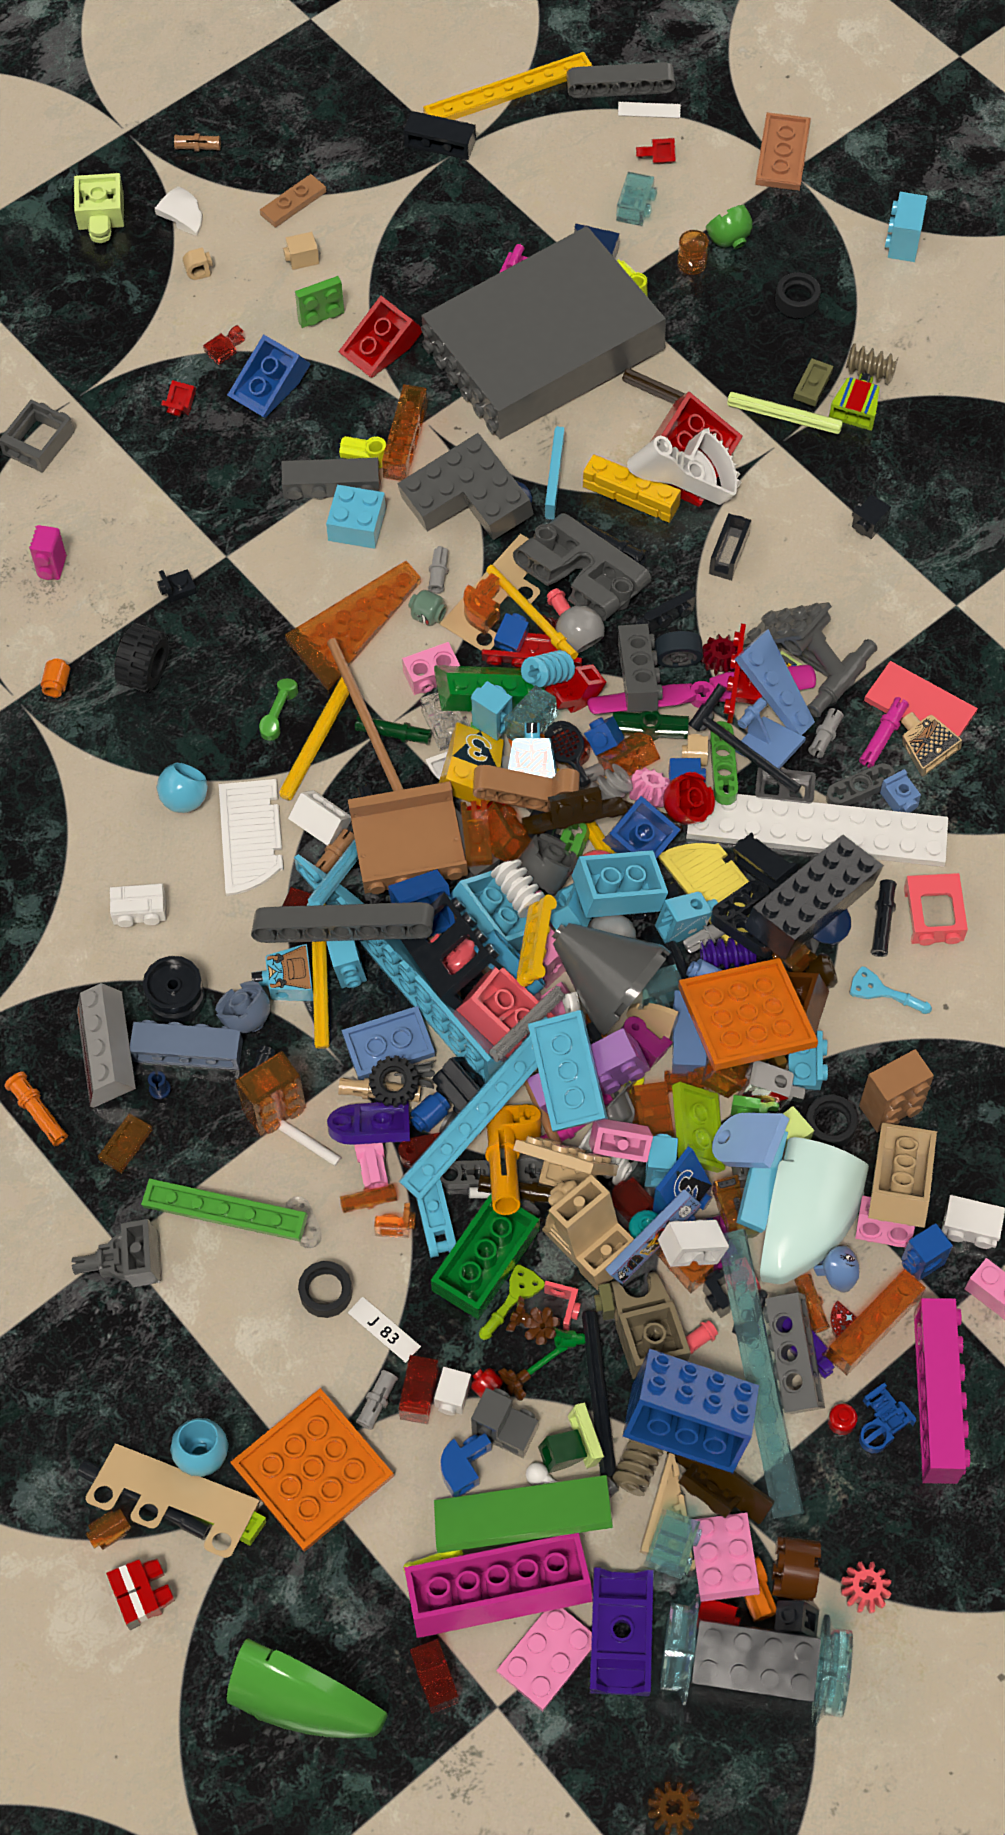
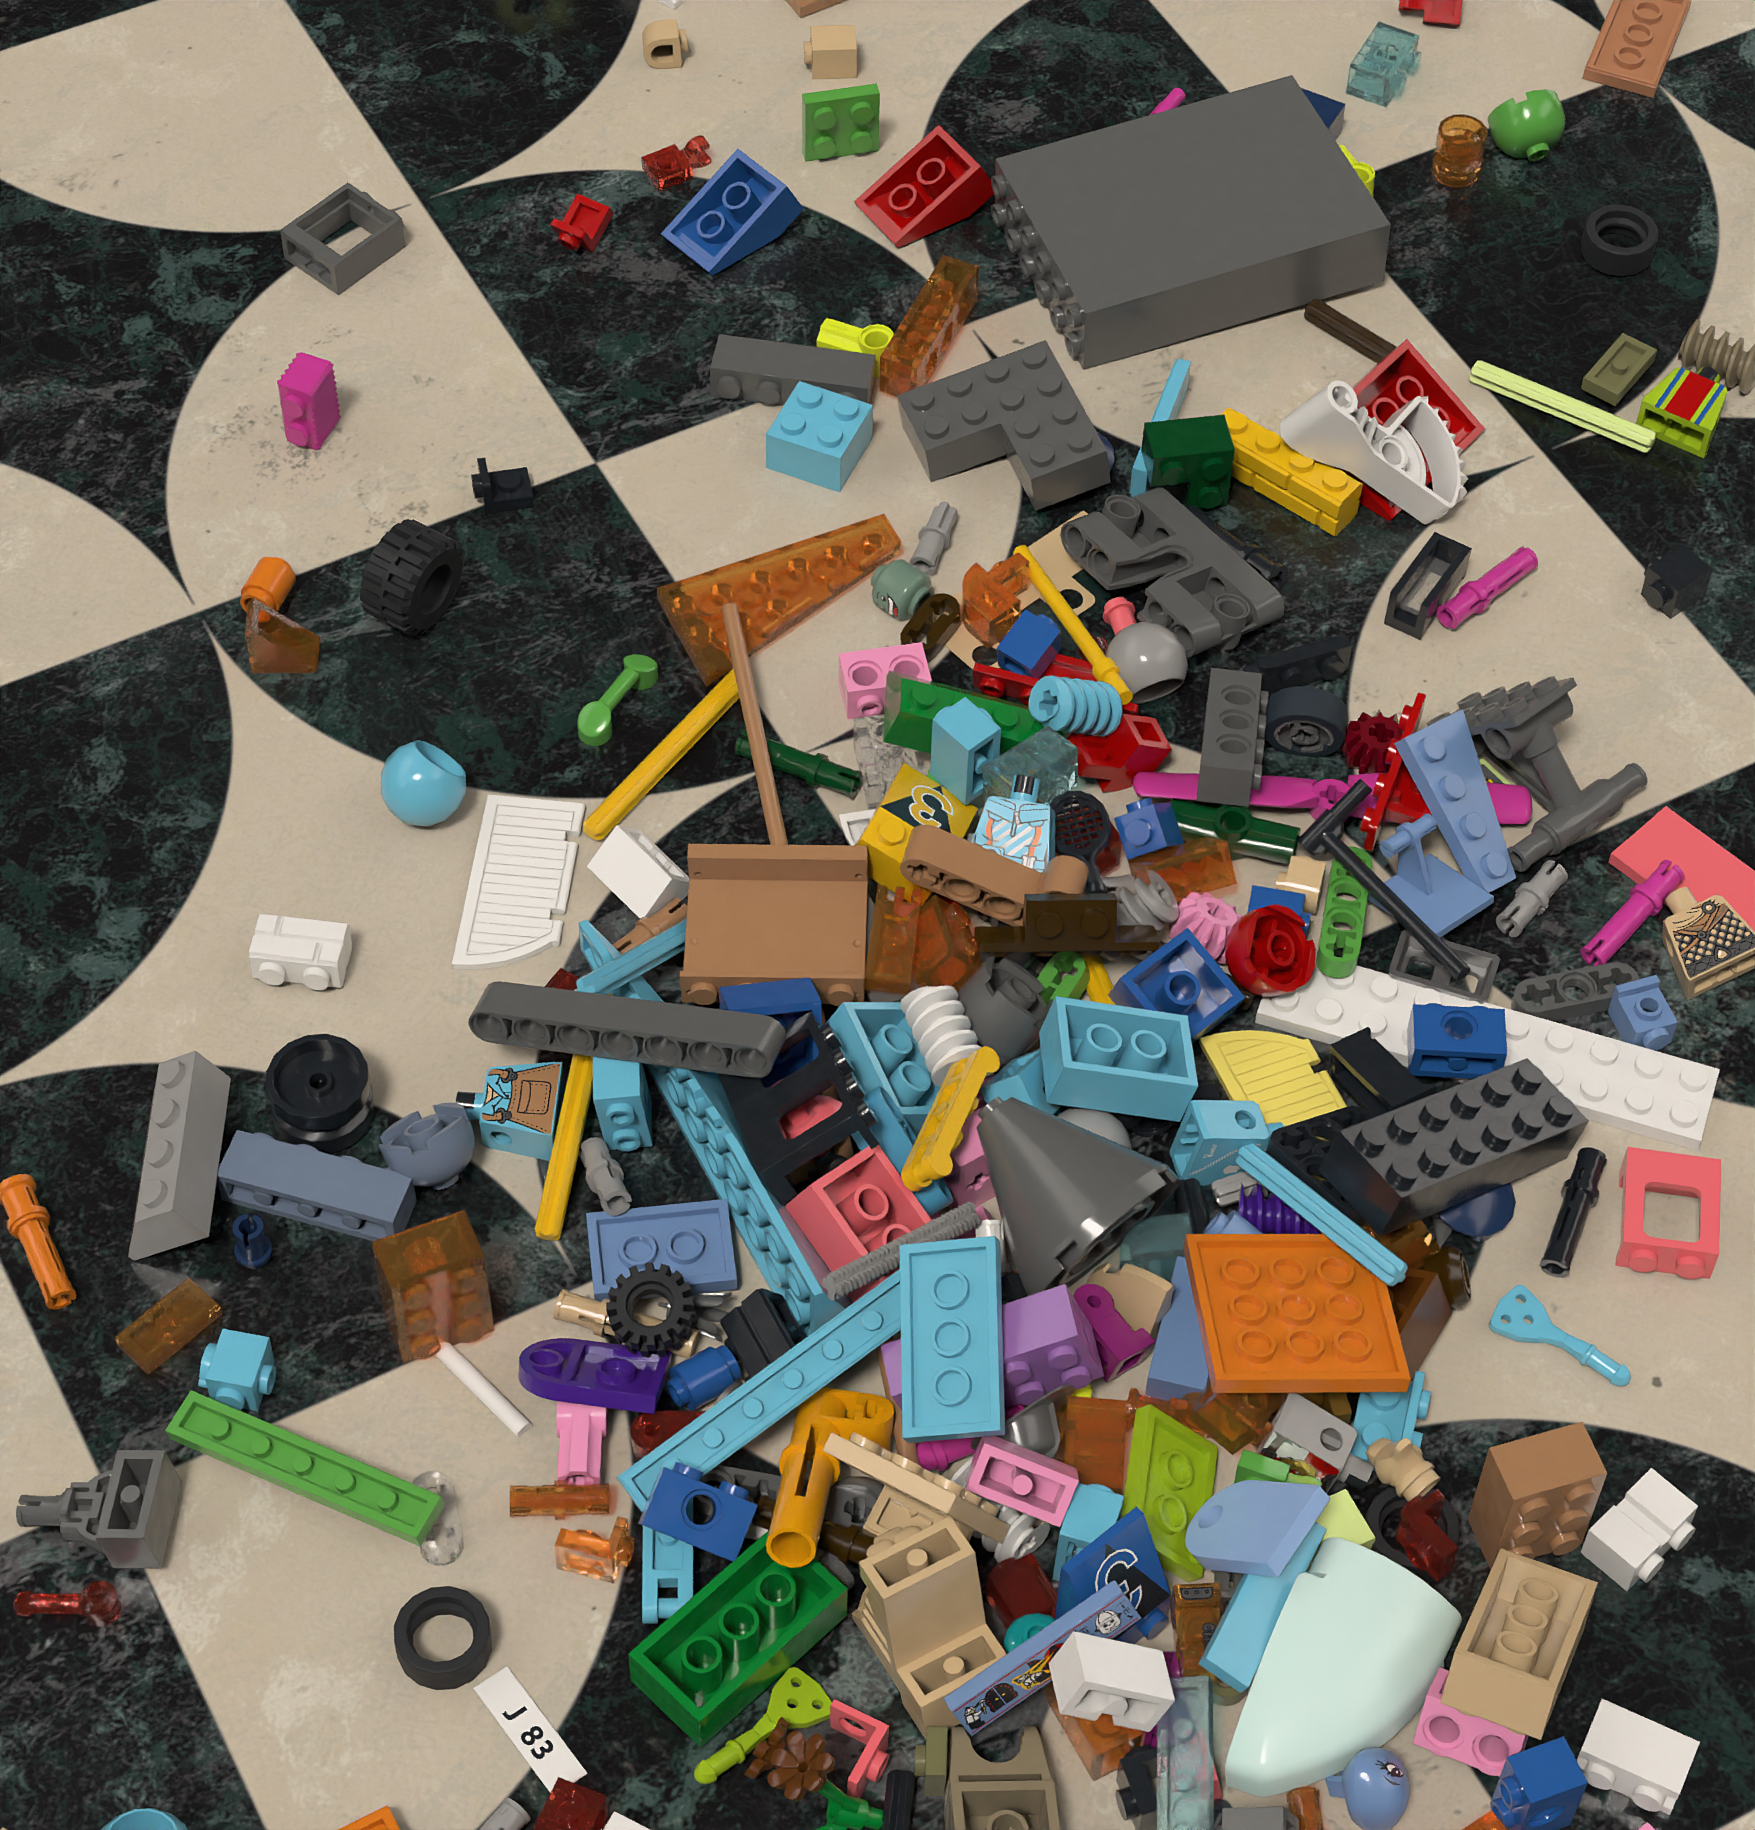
camera: 10 degrees right, 10 degrees down
(72, 712) = (278, 643): none -> clear orange slope
(130, 1308) = (96, 1601): none -> clear red piece
(172, 1161) = (238, 1369): none -> medium azure brick
(346, 1006) = (604, 1176): none -> light grey pin
(444, 626) = (937, 631): none -> dark brown beam
(462, 1202) = (721, 1533): none -> blue brick
(579, 492) = (1191, 454): none -> dark green brick
(749, 952) = (1322, 1214): none -> medium azure axle
(758, 548) = (1477, 594): none -> dark pink pin
(791, 841) = (1437, 1053): none -> blue brick
(820, 1088) = (1402, 1467): none -> tan animal
(839, 1126) = (1422, 1539): none -> clear red bracket
(952, 1095) = (1640, 1530): none -> white brick

